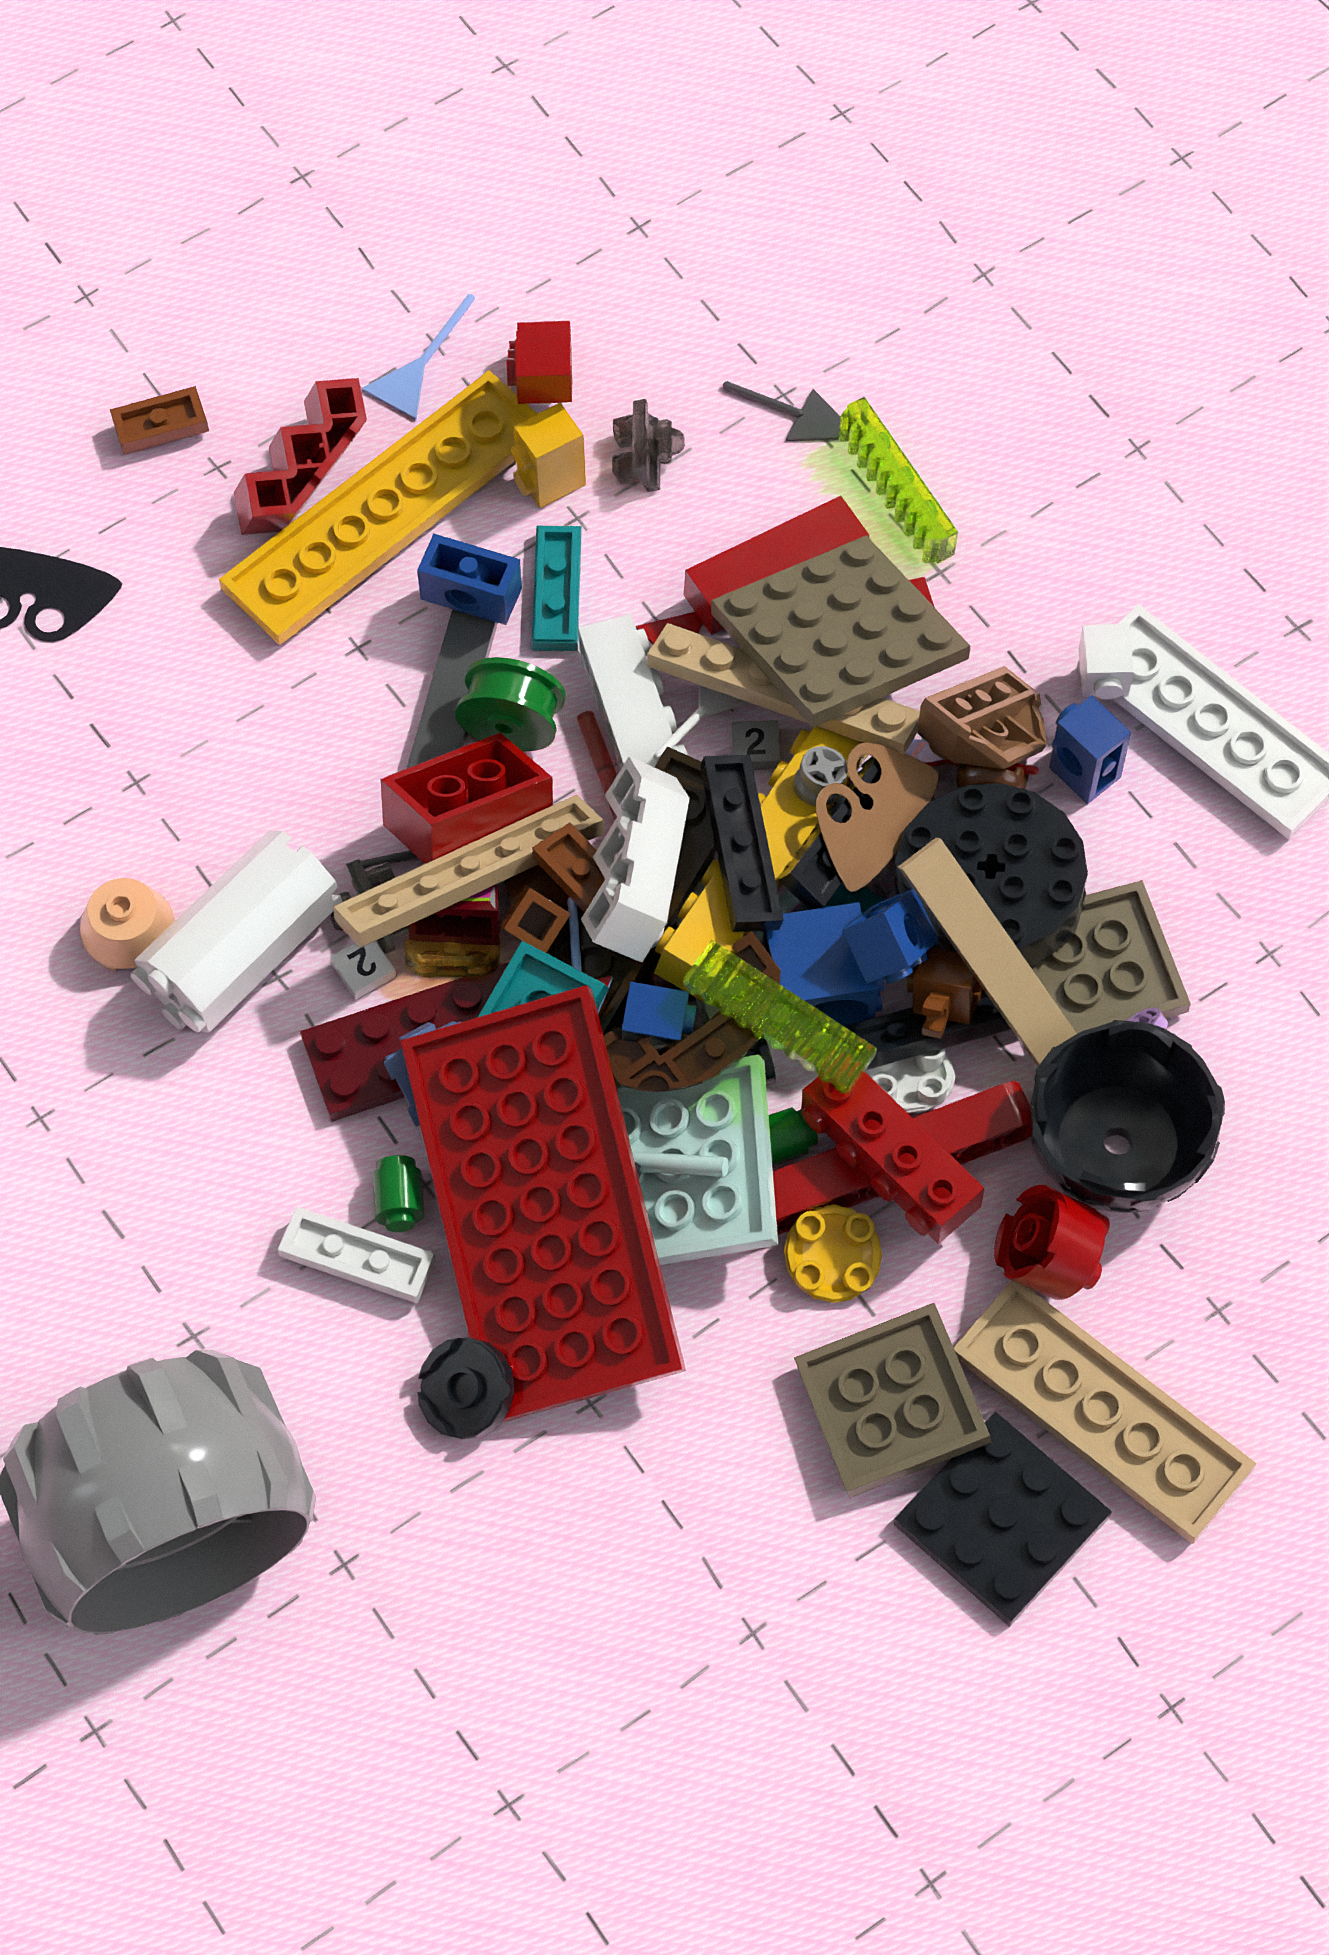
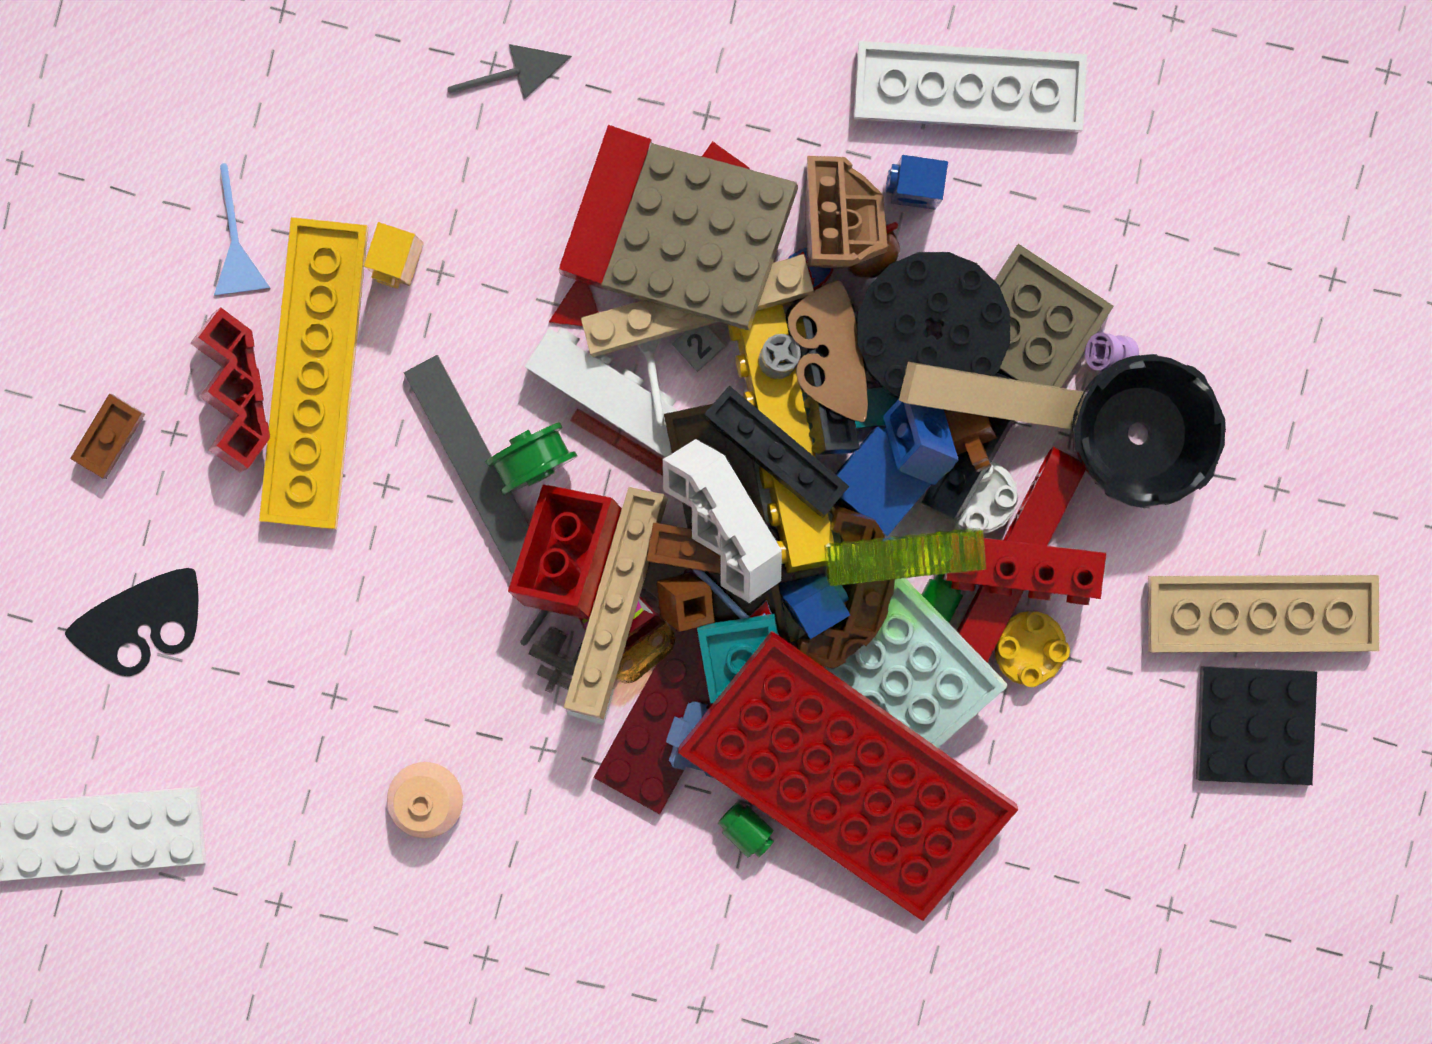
camera: 45 degrees left, 25 degrees up
(236, 932) = (503, 757): white brick -> none
(356, 1255) = (755, 886): white plate -> none
(465, 1388) = (893, 915): black tile -> none
(469, 579) = (426, 393): blue brick -> none
(541, 362) = (332, 195): red brick -> none
(556, 588) = (474, 337): teal tile -> none
(651, 444) = (446, 183): clear smoke hips -> none
(681, 1164) = (906, 683): light aqua bar -> none
(892, 1400) = (1142, 713): dark tan plate -> none
(897, 481) = (629, 73): clear neon green gear -> none
(1051, 1243) = (1162, 544): red brick -> none
(1106, 660) = (879, 109): white brick -> none

